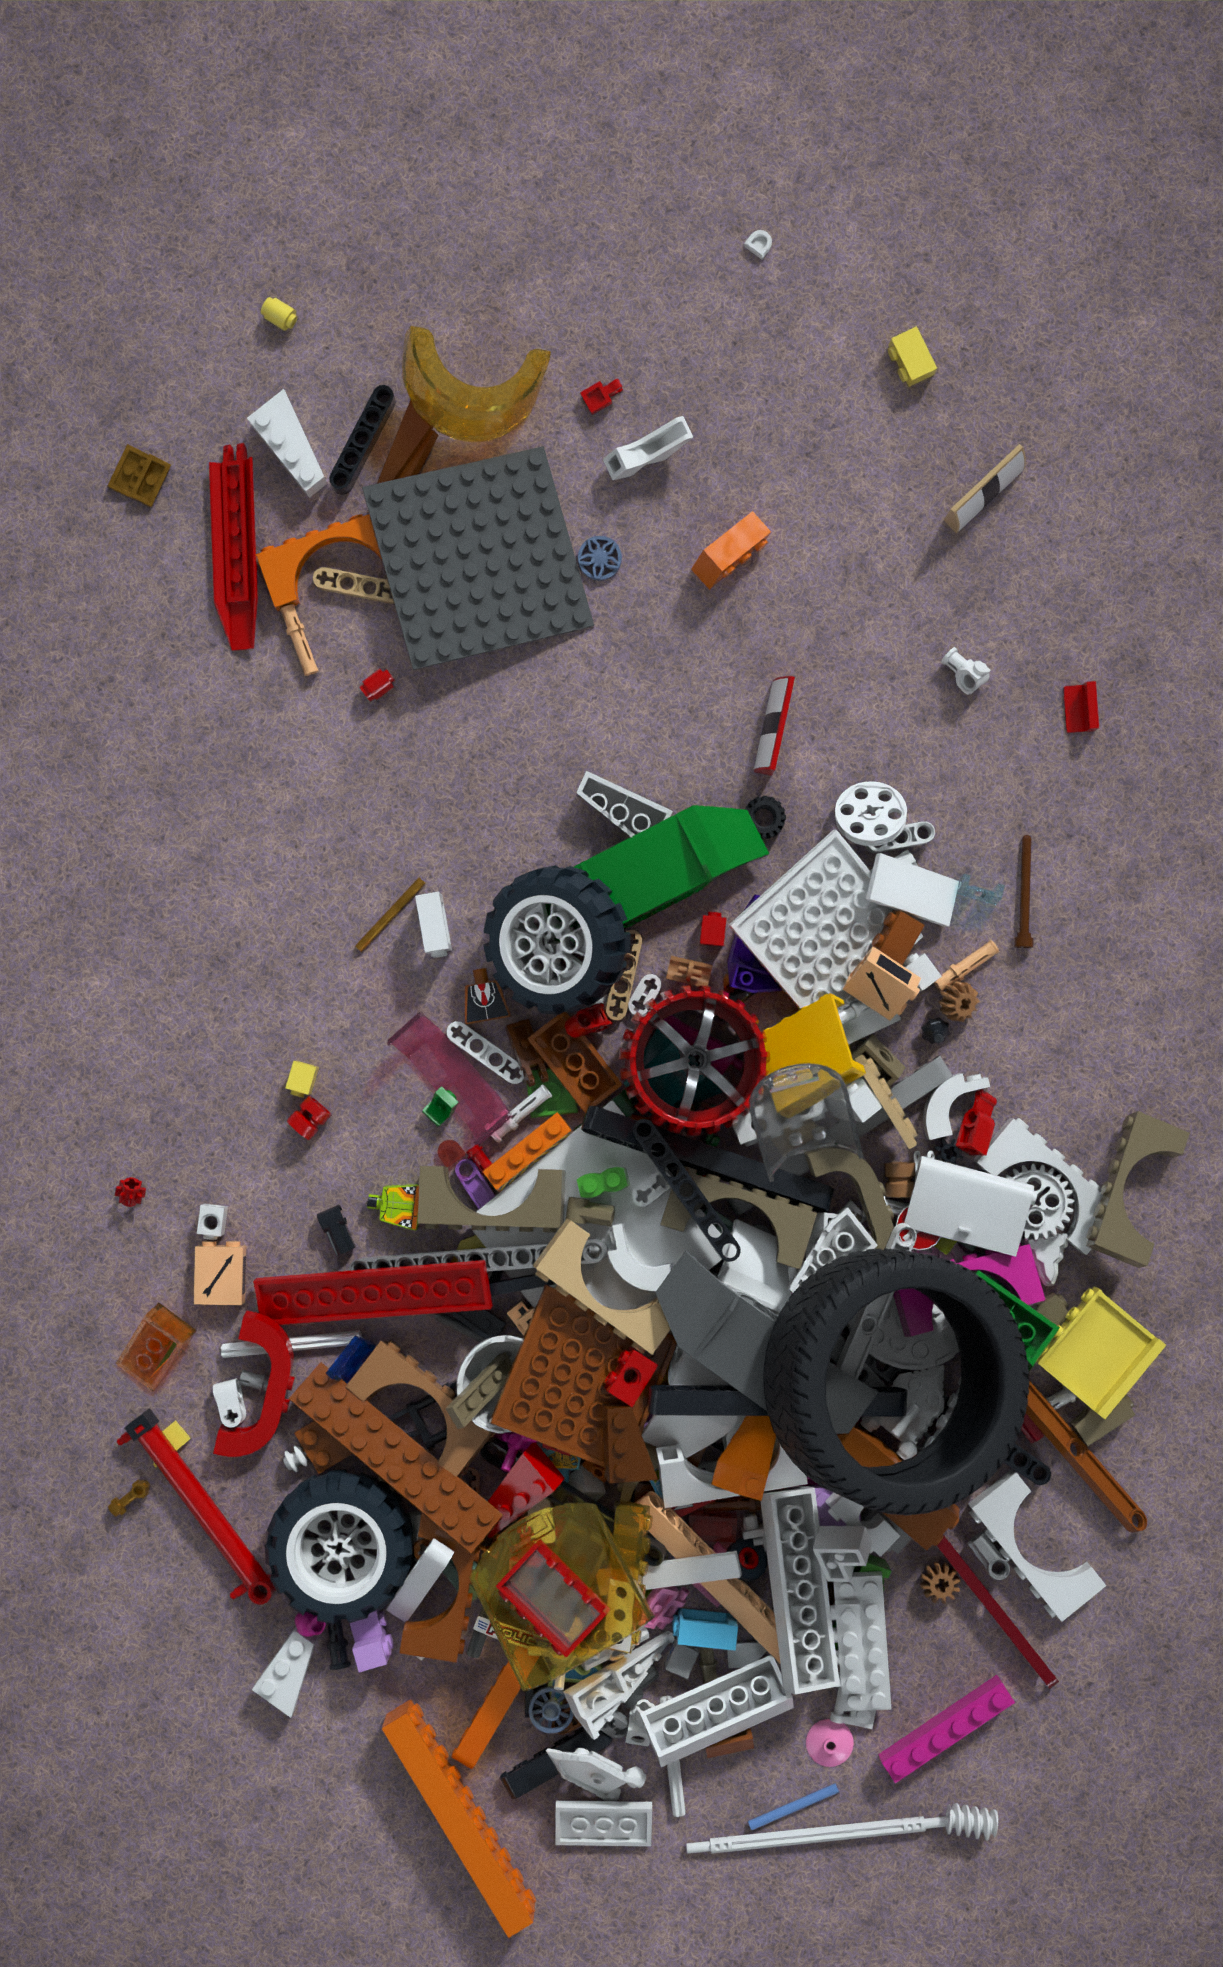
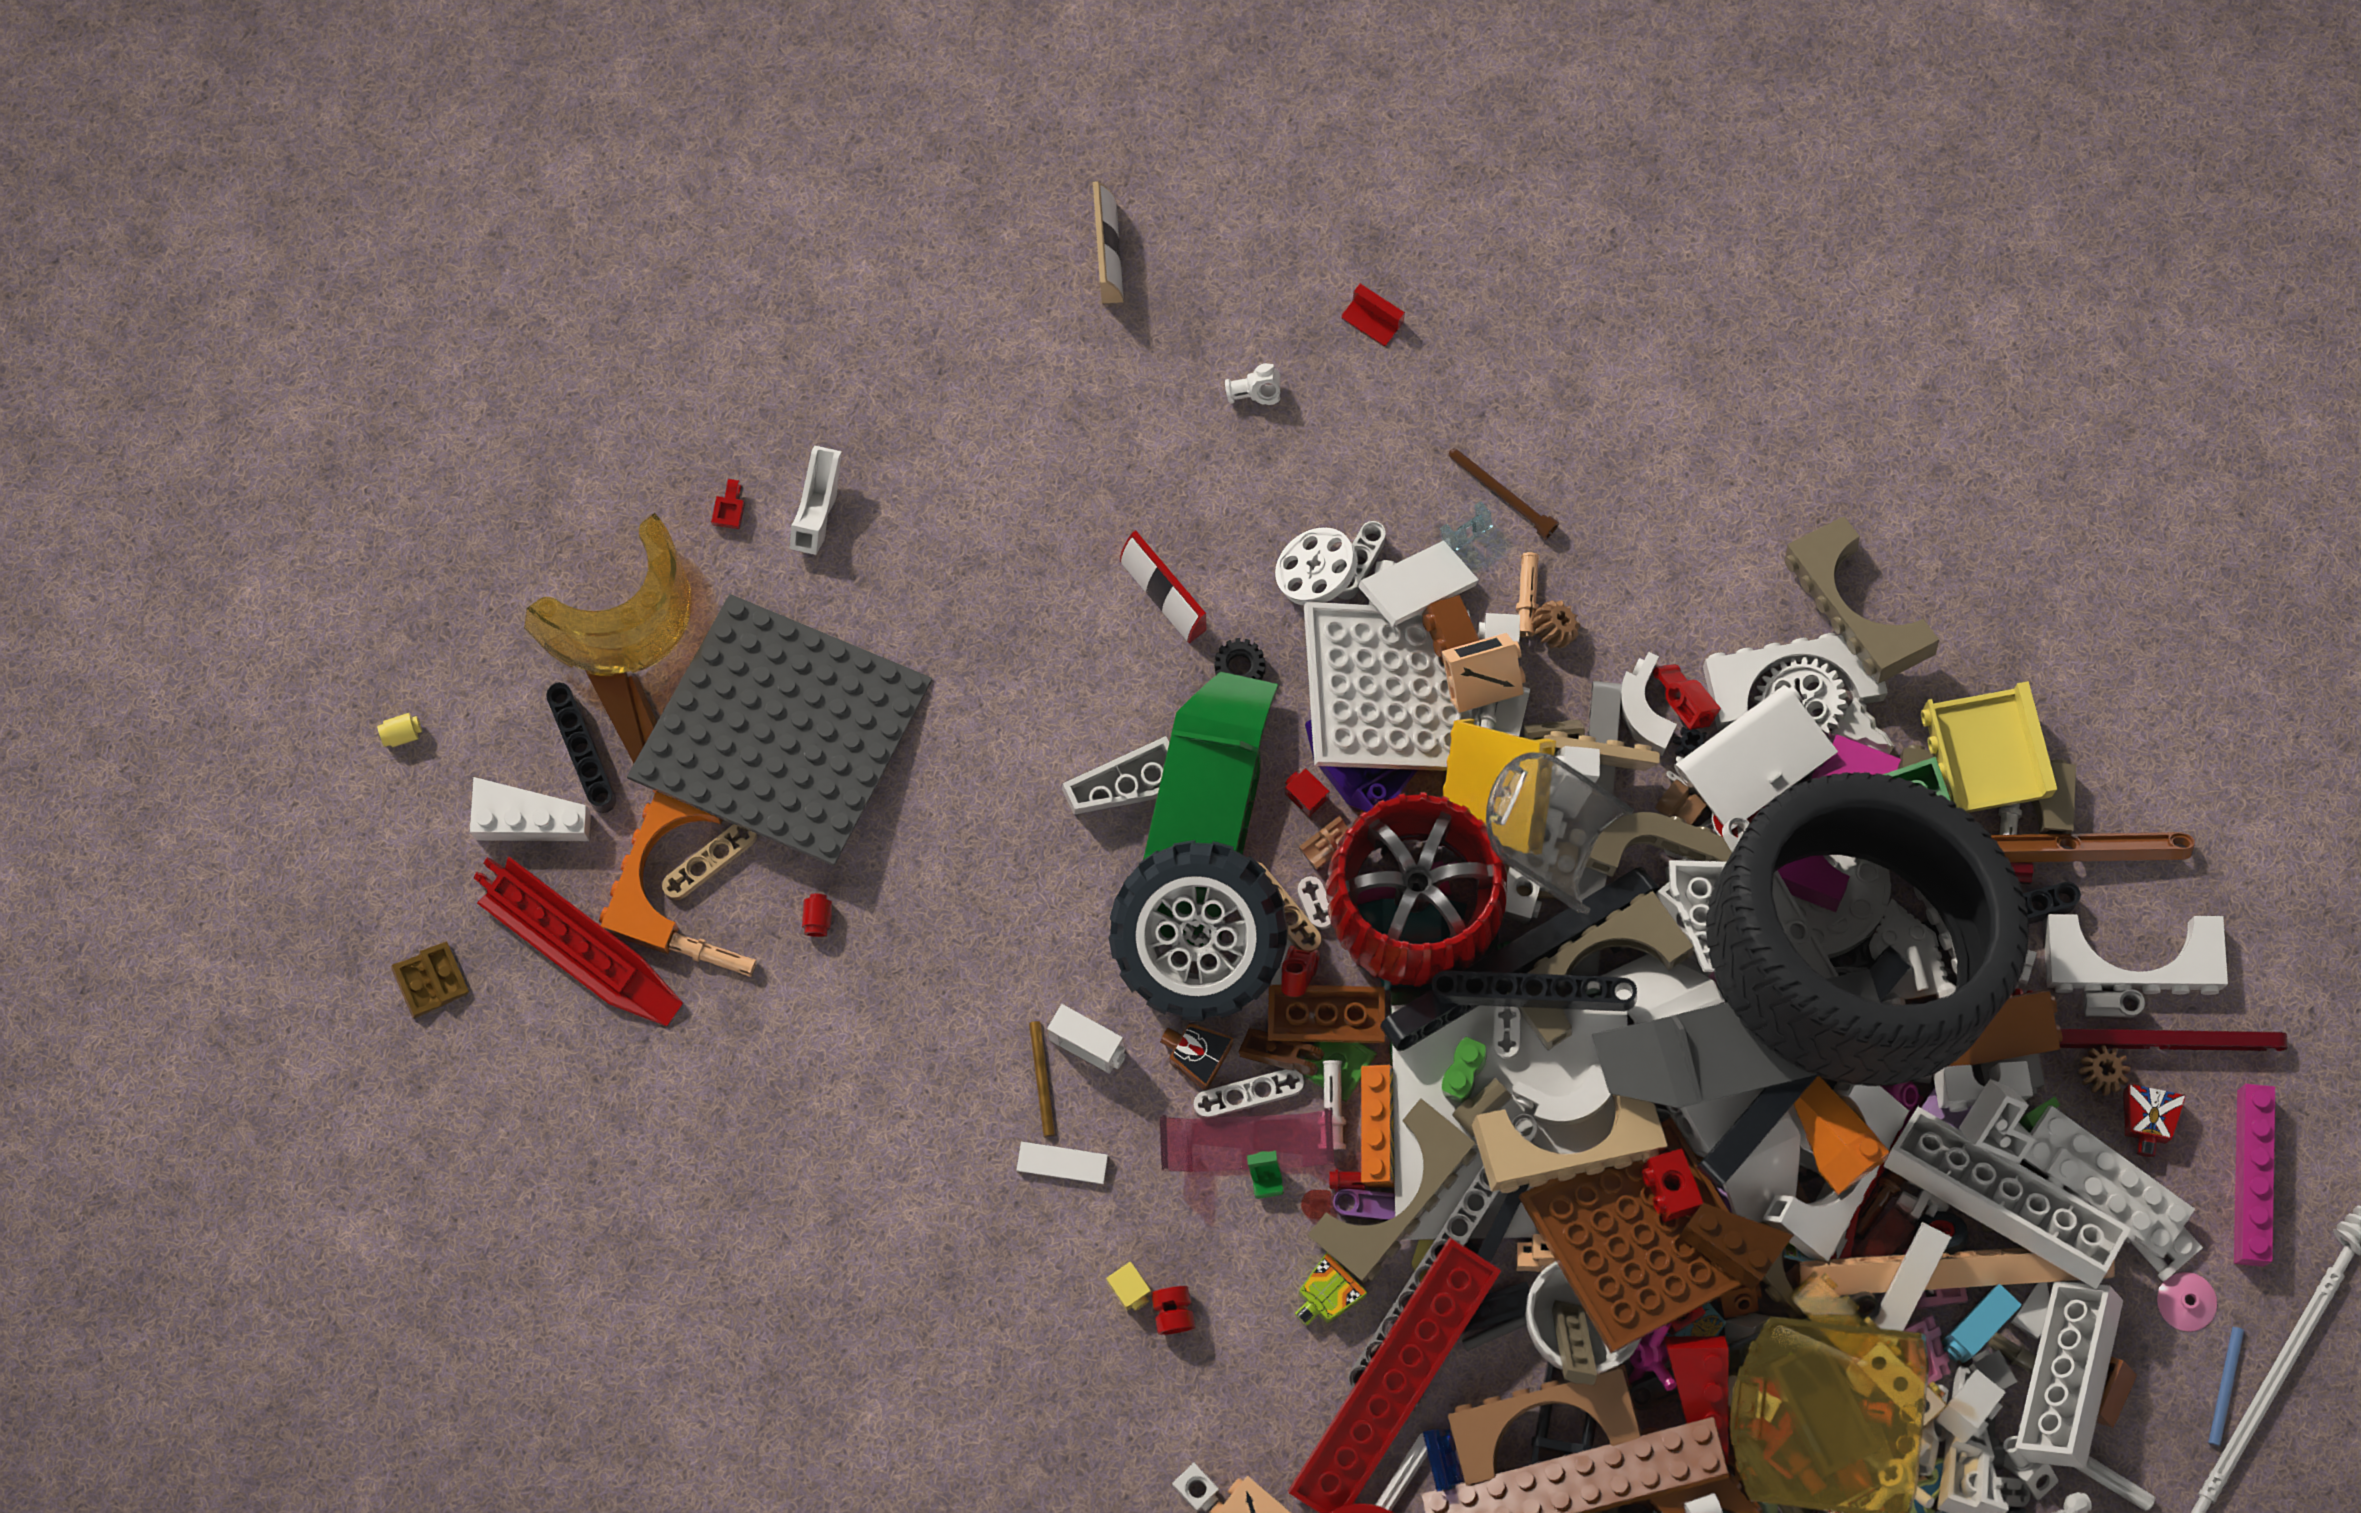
camera: 45 degrees left, 15 degrees down
(336, 1229) = (1300, 1372): black piece -> none
(347, 971) = (1062, 1163): none -> white tile
(552, 1598) = (1833, 1429): clear window -> none
(599, 558) = (875, 624): sand blue wheel -> none
(645, 1665) = (1971, 1406): none -> white brick
(731, 549) = (969, 502): orange wedge -> none
(759, 243) = (716, 267): white tile -> none
(912, 357) = (933, 217): light yellow brick -> none
(932, 1635) = (2150, 1116): none -> torso
(935, 1030) = (1566, 667): black piece -> none

